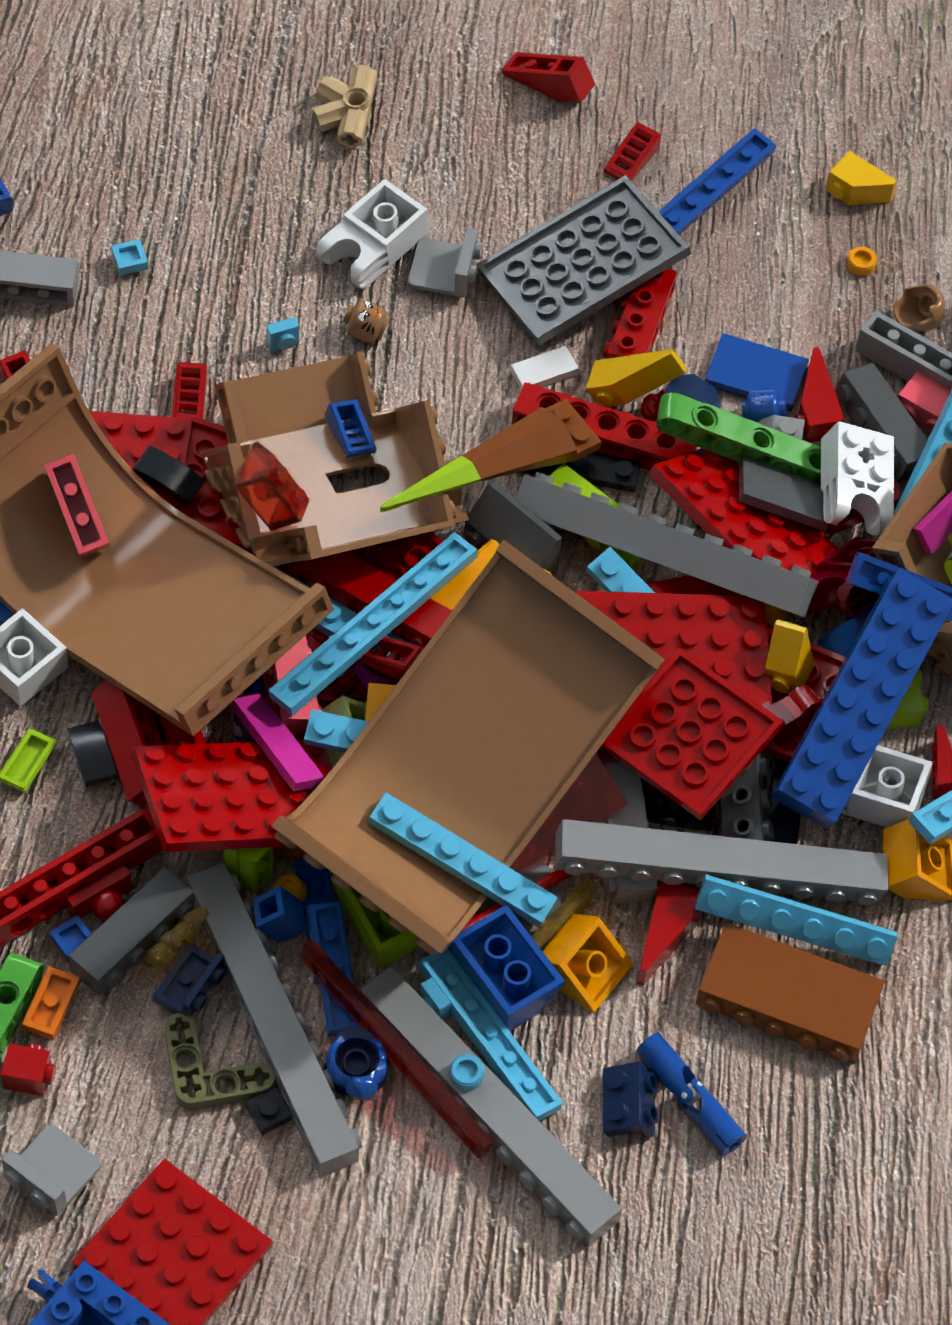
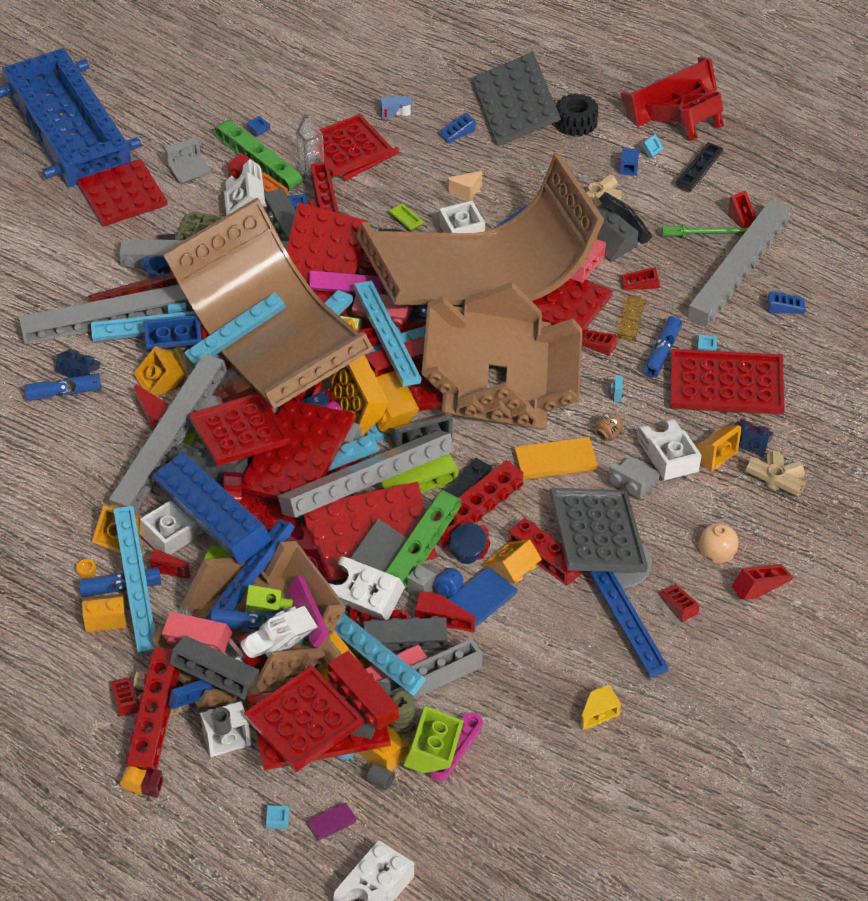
camera: 120 degrees right, 10 degrees down
(77, 505) = (528, 248): coral brick -> none
(98, 1019) = (245, 188): none -> white brick
(117, 370) = (631, 318): none -> clear yellow tile
(140, 309) = (662, 347): none -> blue piece
(167, 472) = (545, 299): black slope -> none
(194, 214) = (727, 381): none -> red plate
(271, 489) = (485, 304): clear red slope -> none
(289, 156) = (753, 437): none -> dark blue bracket
(339, 174) = (719, 446): none -> light orange slope
(350, 409) = (531, 380): blue slope -> none
(456, 372) = (556, 458): none -> light orange tile
(466, 1072) = (127, 299): medium azure tile -> none
(508, 140) = (718, 543): none -> light nougat cylinder
(536, 441) = (472, 453): dark orange plate -> none
(545, 368) = (536, 498): white tile -> none
(629, 377) = (502, 518): yellow slope -> none
(690, 342) = (514, 560): none -> light orange slope
(789, 657) = (263, 501): yellow slope -> none
(789, 993) = (86, 445): dark orange brick -> none
(796, 920) = (114, 458): medium azure plate -> none
(861, 261) = (538, 687): light orange tile -> none
(920, 308) = (479, 691): medium nougat hair -> none

